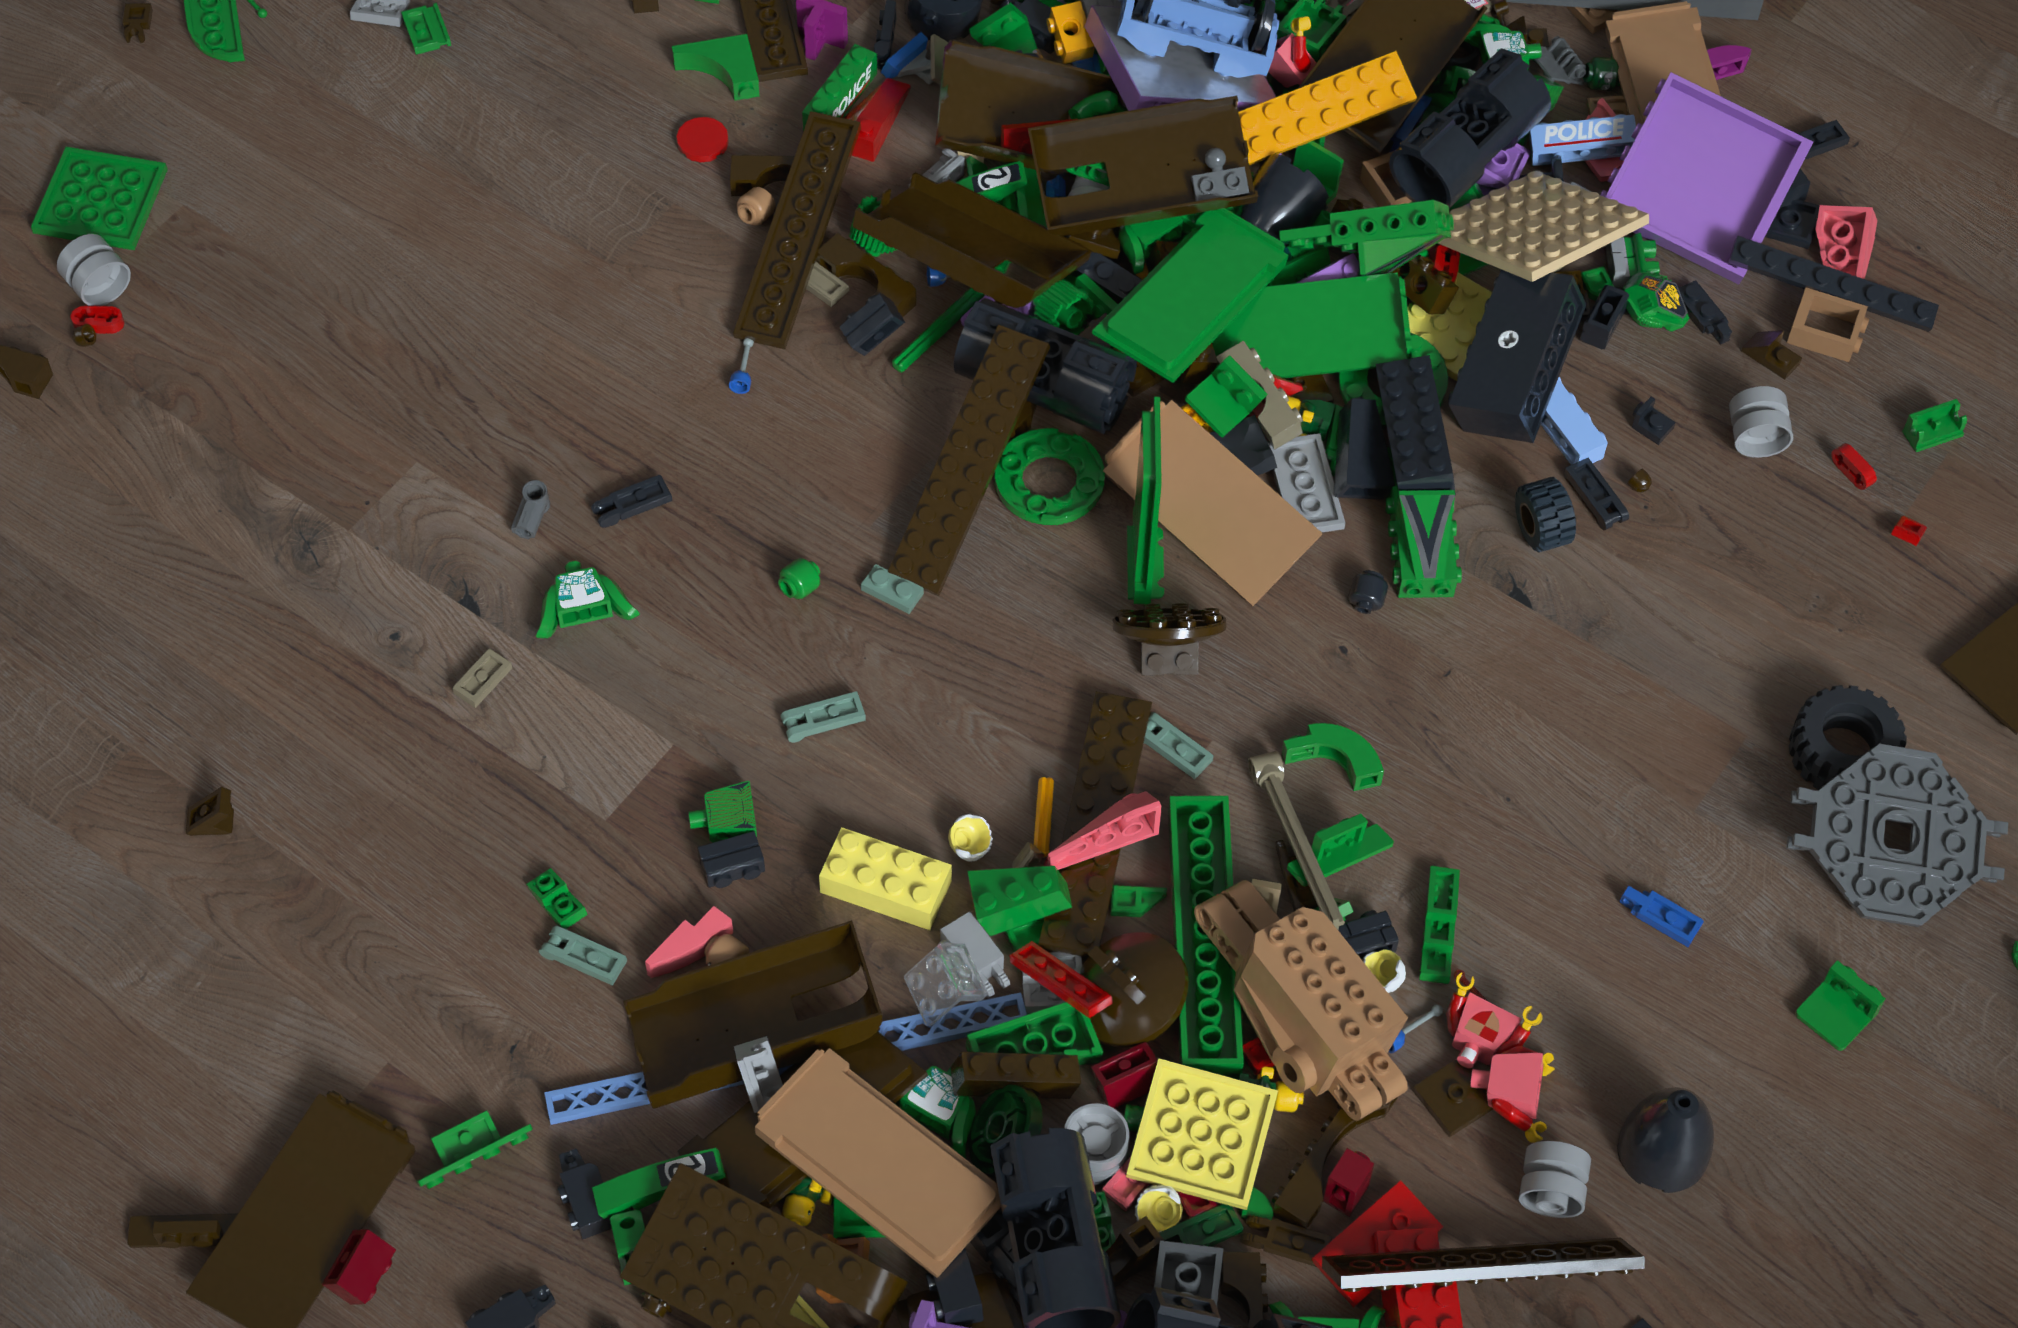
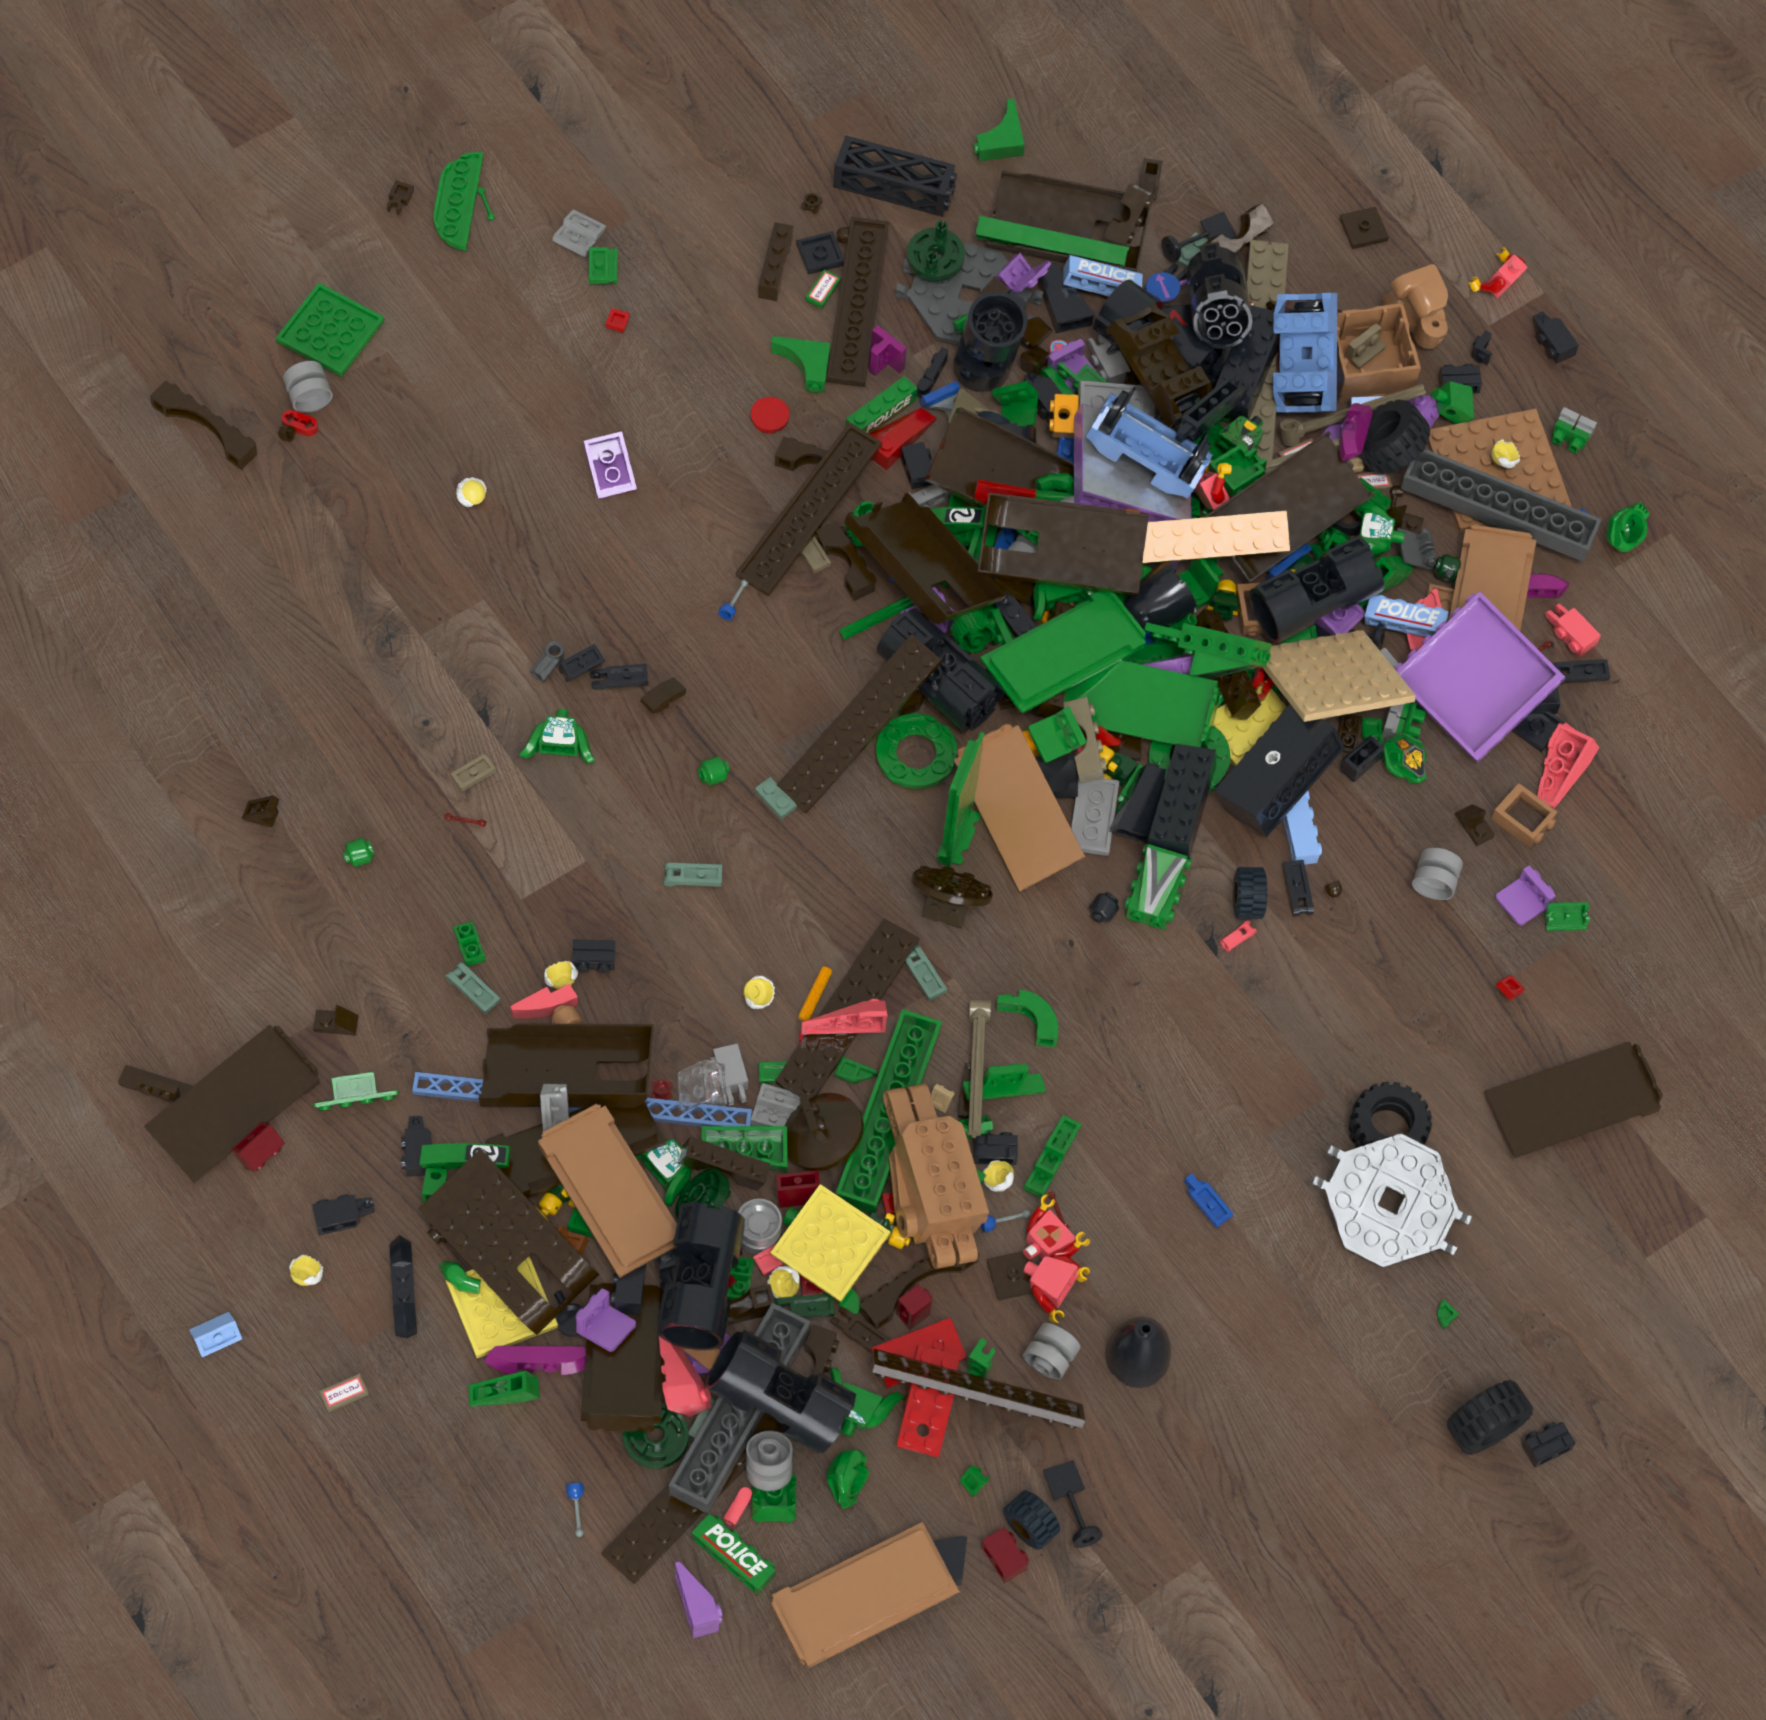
camera: 15 degrees right, 5 degrees up
(353, 336) = (471, 491): none -> light yellow hair
(363, 826) = (358, 852): none -> green head
(414, 1060) = (336, 1022): none -> dark brown slope
(468, 85) = (617, 320): none -> red plate
(515, 739) = (481, 822): none -> clear red hinge
(521, 252) = (609, 465): none -> slope
(575, 498) = (581, 662): none -> black hinge
(695, 507) = (661, 695): none -> dark brown slope
(696, 899) = (560, 974): none -> light yellow hair
(727, 812) = (602, 922): green torso -> none
(756, 206) = (787, 480): medium nougat head -> none
(871, 324) = (834, 598): black brick -> none
(885, 878) = (691, 1002): light yellow piece -> none
(895, 1000) = (661, 1084): none -> clear red plate
(911, 143) = (916, 464): none -> black brick
(1017, 896) = (772, 1043): green wedge -> none
(1028, 857) = (791, 1021): dark tan slope -> none
(1060, 979) = (778, 1109): red tile -> none
(1219, 181) = (1115, 574): dark grey plate -> none
(1355, 185) = (1225, 599): none -> dark green piece
(1467, 1226) = (978, 1362): none -> green hinge
(1548, 576) = (1236, 937): none -> coral bar
(1651, 422) = (1363, 847): black bracket -> none
(1705, 312) = (1439, 775): black hinge -> none
(1780, 98) = (1573, 629): none -> coral hinge
(1827, 280) = (1540, 786): black plate -> none
(1840, 1006) = (1299, 1303): green bracket -> none
(1853, 466) = (1492, 927): red beam -> none
(1876, 416) = (1526, 896): none -> medium lavender bracket

